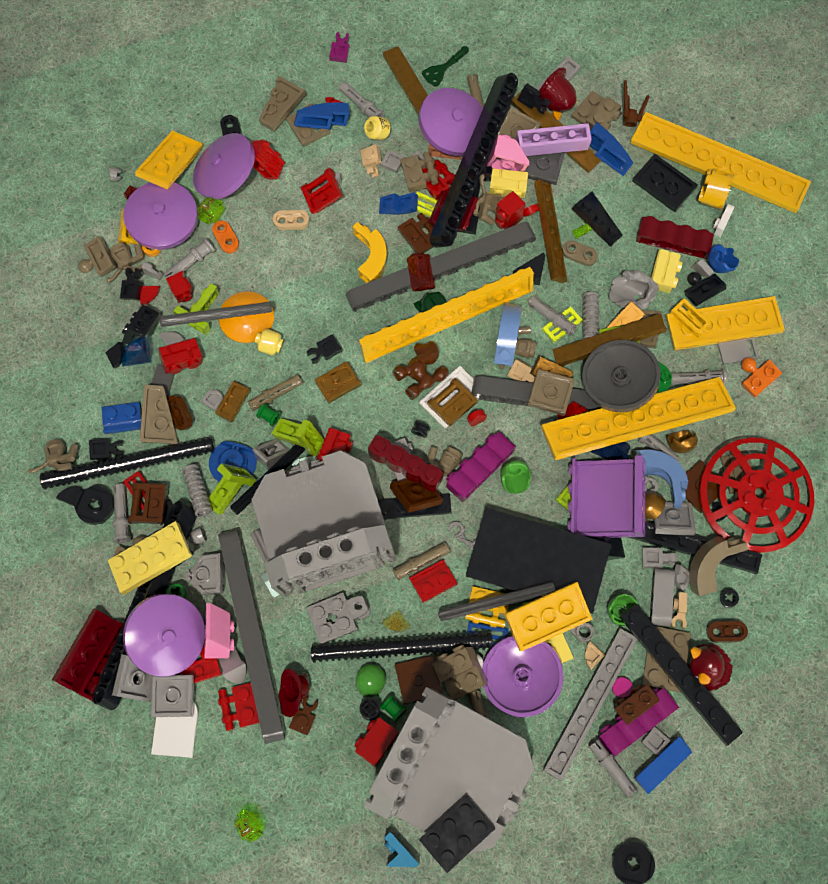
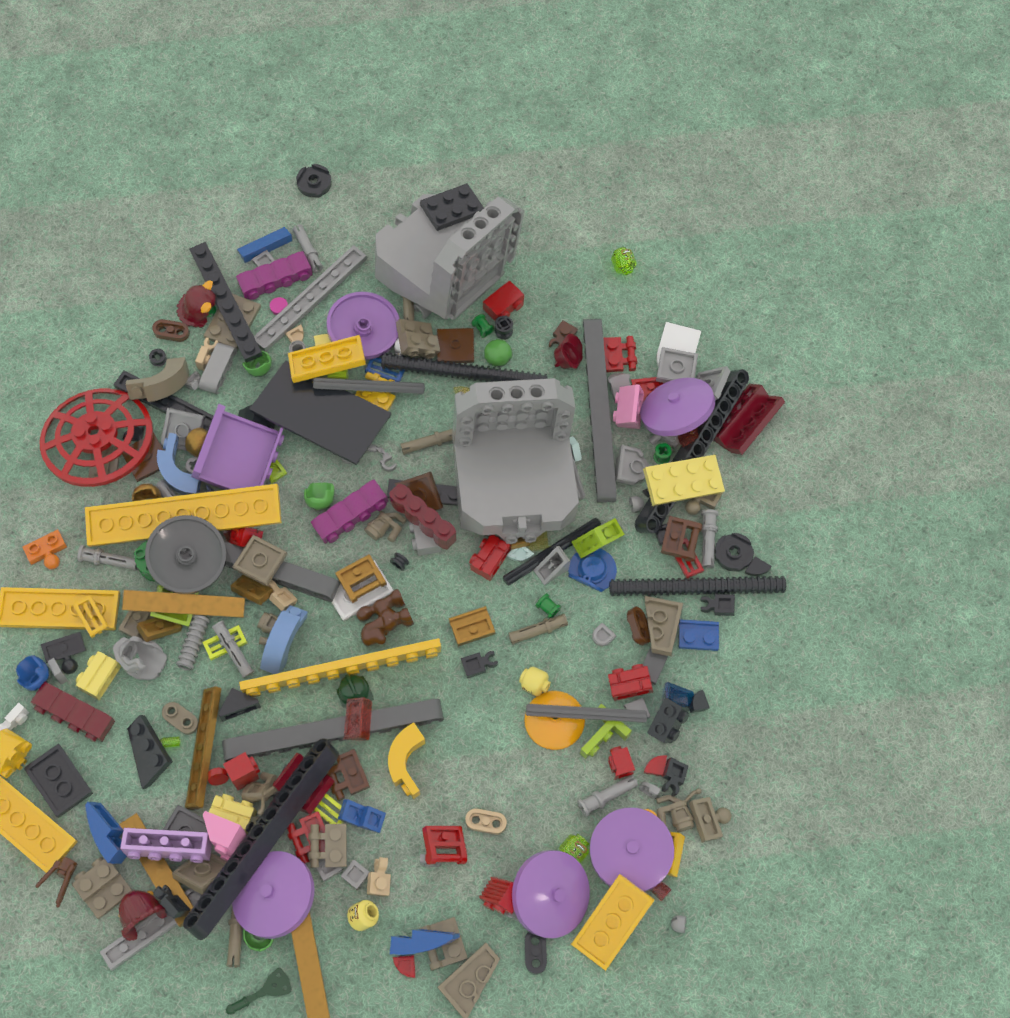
camera: 170 degrees left, 5 degrees down
(55, 456) = (770, 607): dark tan piece -> none
(196, 490) = (631, 543): light grey piece -> none
(224, 236) = (562, 817): orange plate -> none
(232, 401) = (583, 628): pearl gold plate -> none
(299, 434) = (523, 576): lime bracket -> none
(367, 107) = (368, 951): light grey pin -> none
(433, 581) = (421, 423): red plate -> none
(476, 417) = (340, 561): red tile -> none
(636, 705) = (272, 284): reddish brown bracket -> none
(655, 558) = (210, 400): light grey plate -> none
(736, 350) = (57, 578): light grey piece -> none

